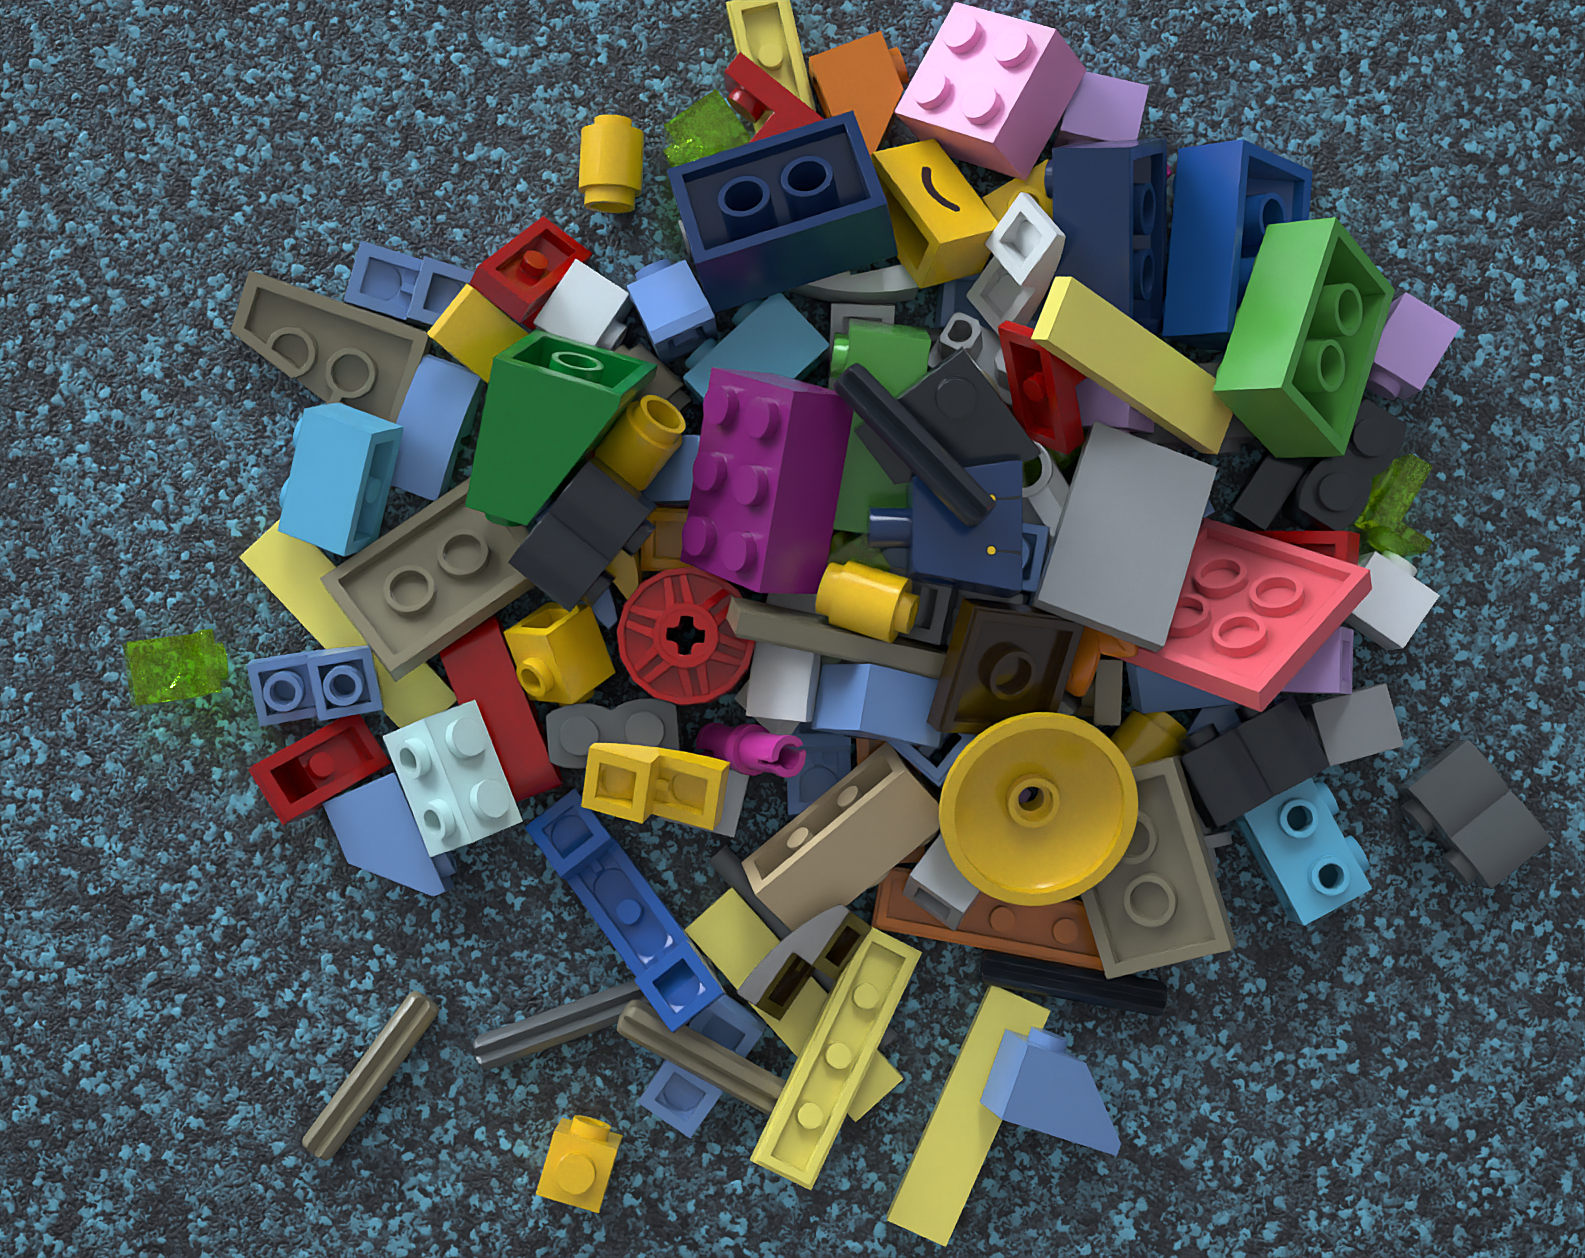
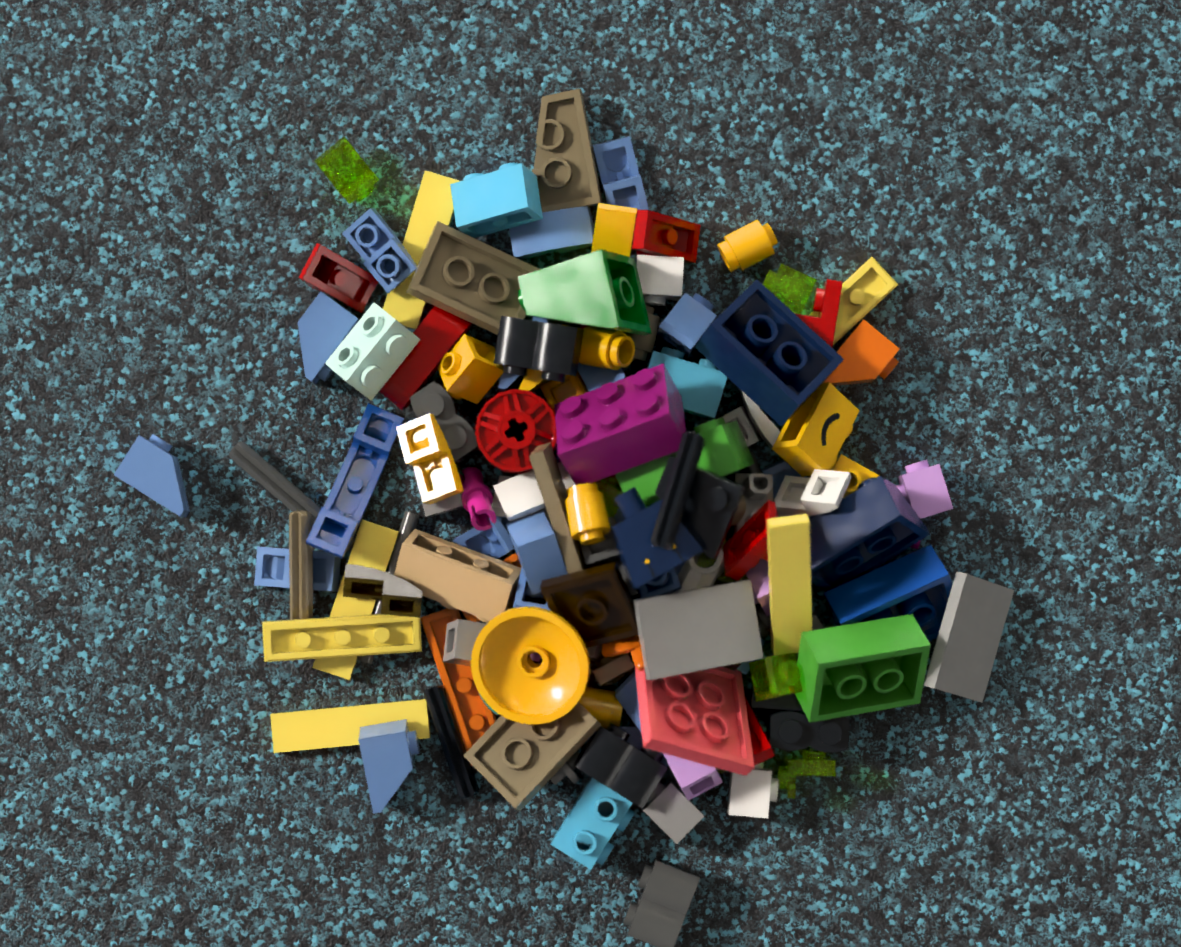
camera: 65 degrees right, 0 degrees up
(370, 1075) = (191, 397): dark tan axle -> none
(449, 1191) = (155, 473): none -> medium blue slope
(579, 1163) = (209, 533): yellow brick -> none
(991, 89) = (901, 425): bright pink brick -> none
(1249, 468) = (775, 677): none -> clear neon green bracket
(1339, 169) = (969, 637): none -> light grey tile
(1409, 348) = (893, 728): lavender brick -> none

